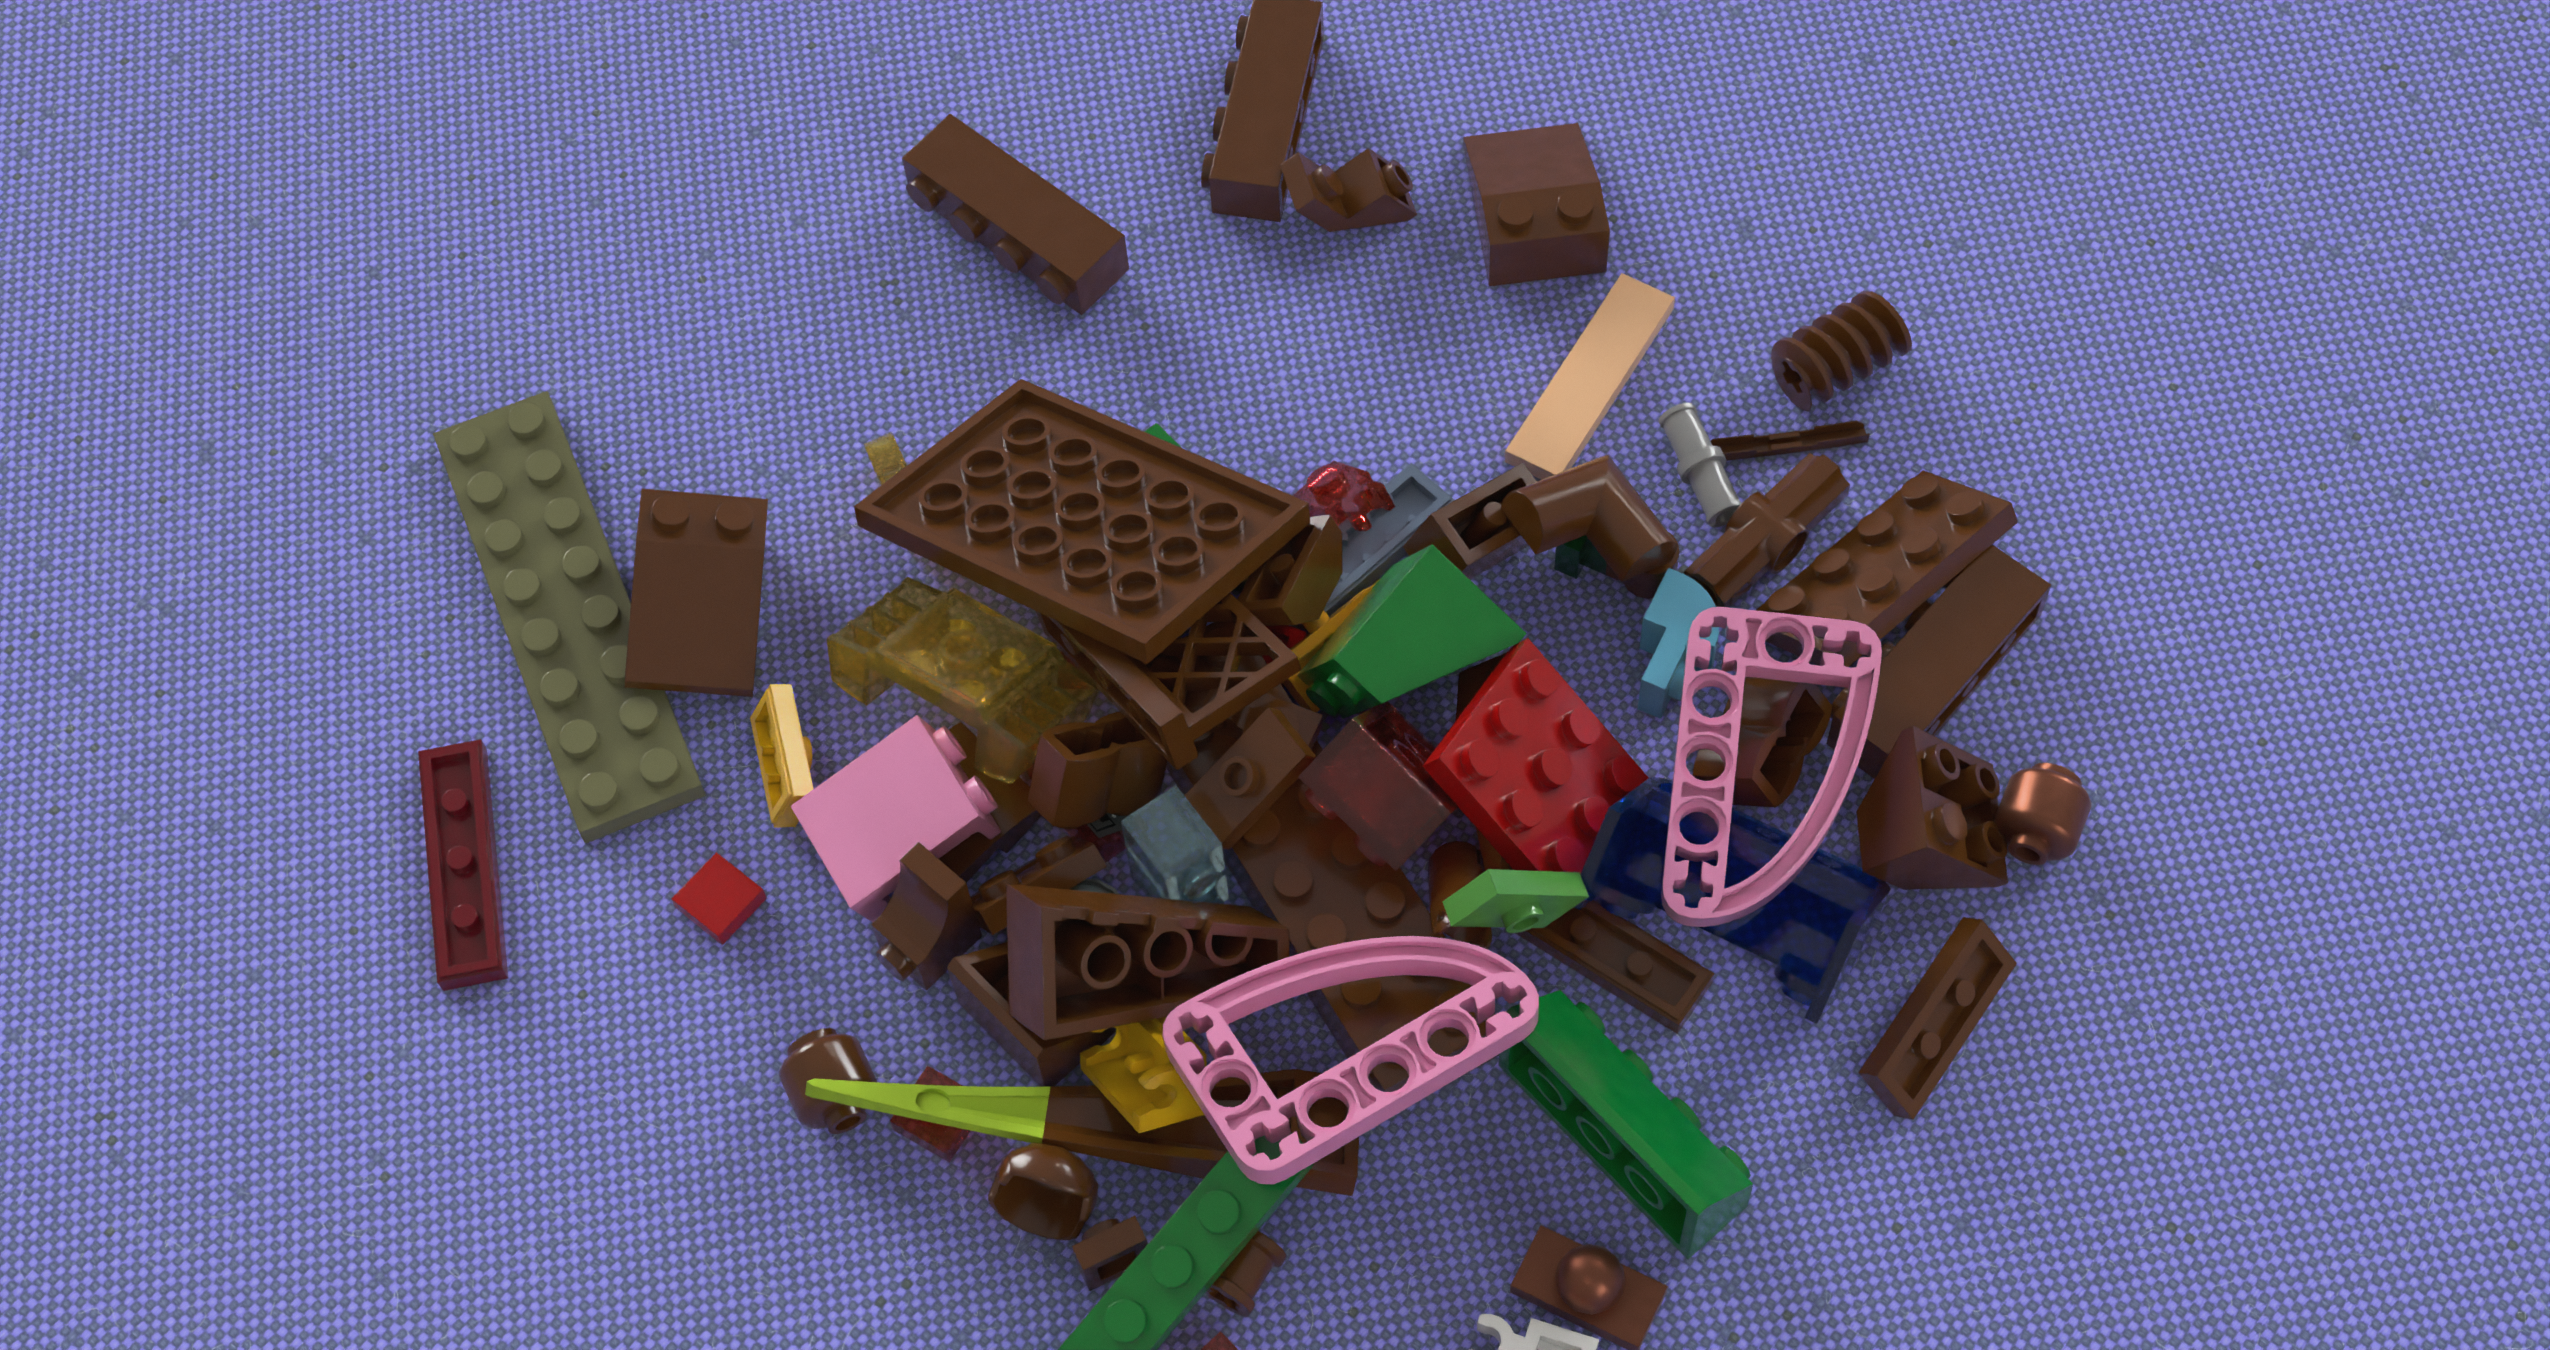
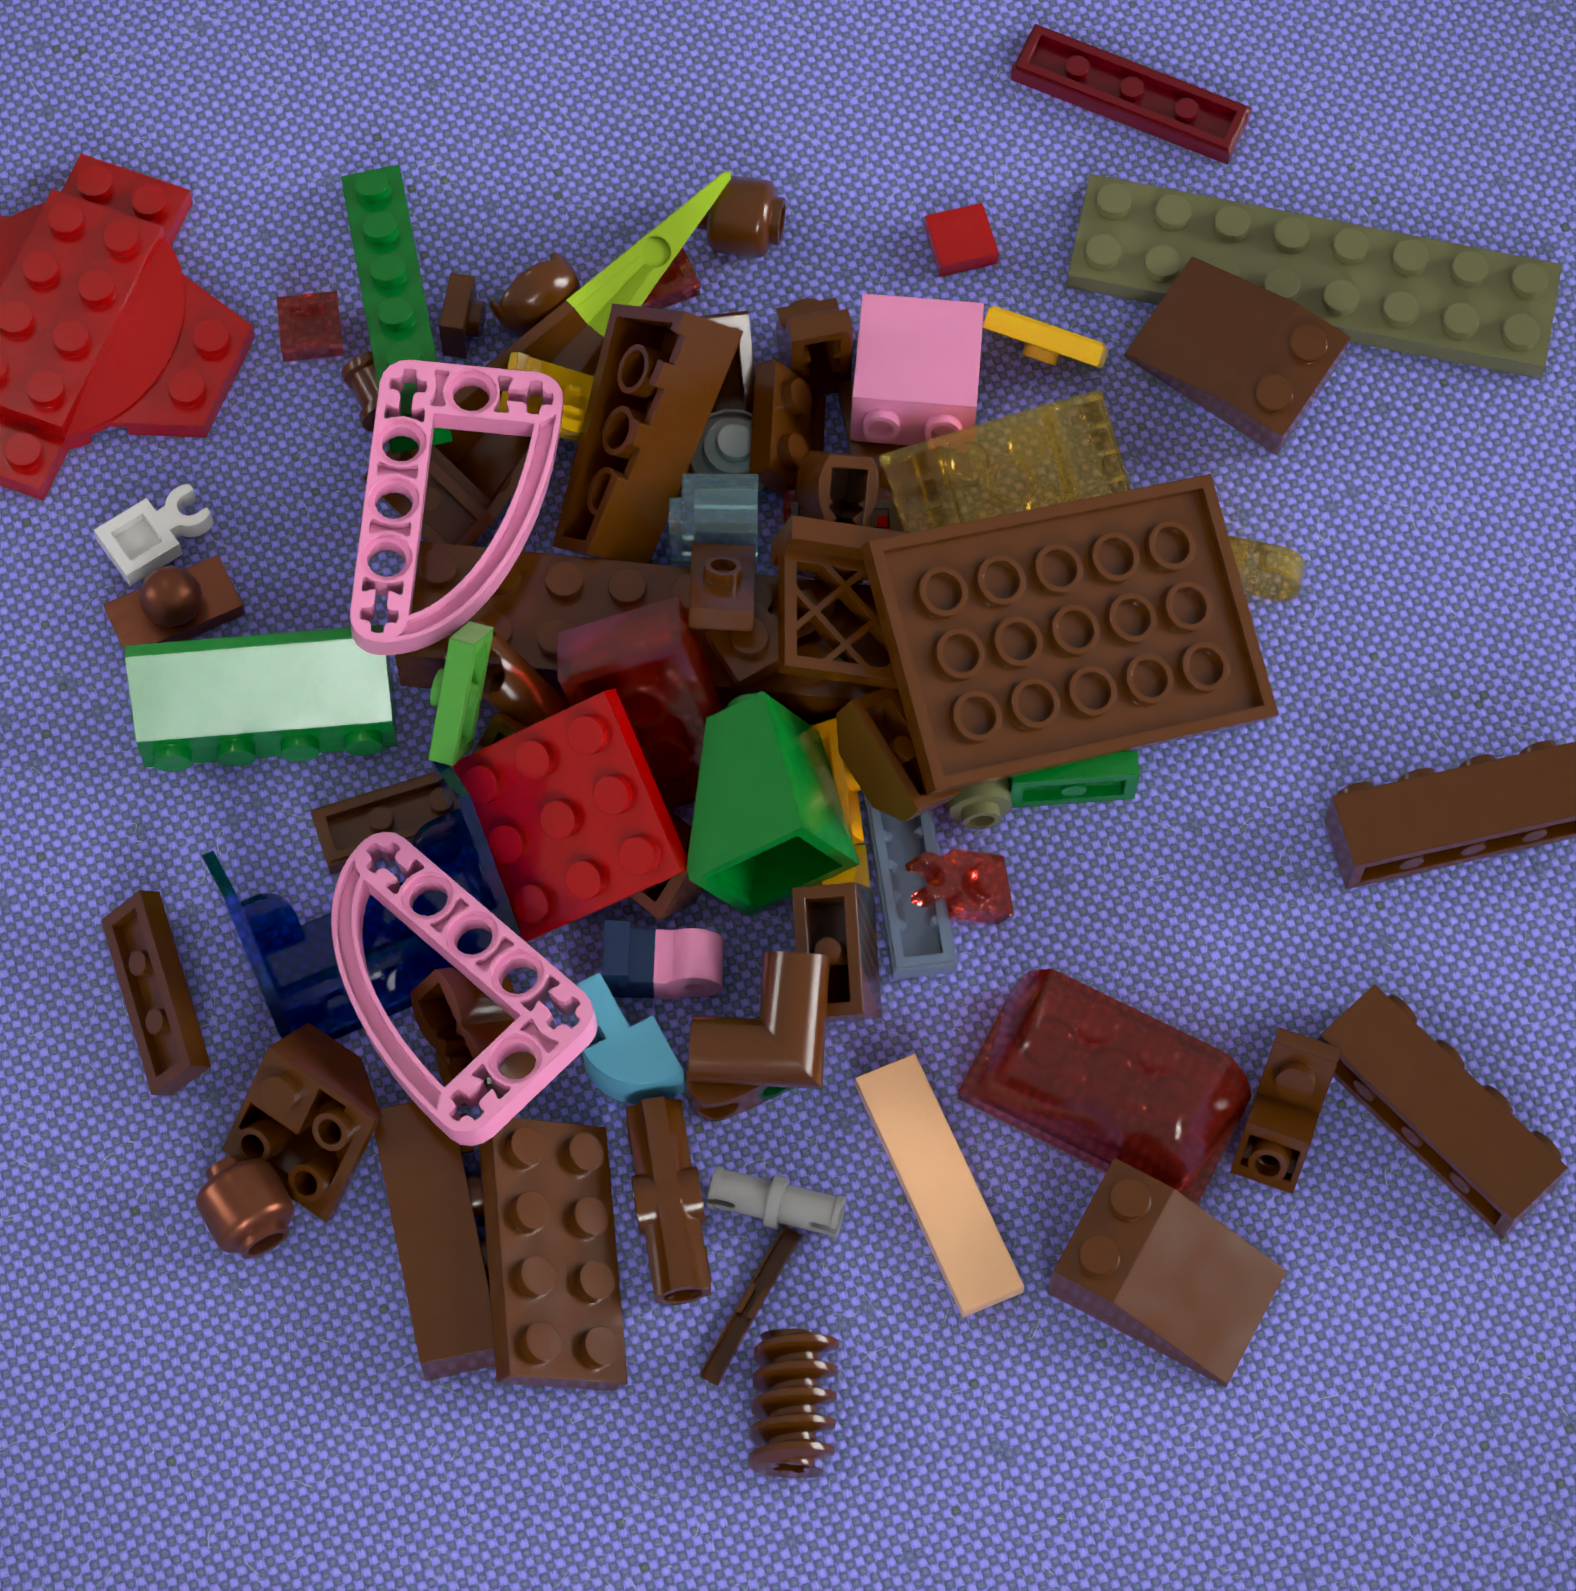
camera: 120 degrees right, 5 degrees up
(1427, 317) = (1108, 1082): none -> clear red windscreen
(1588, 664) = (661, 961): none -> leg

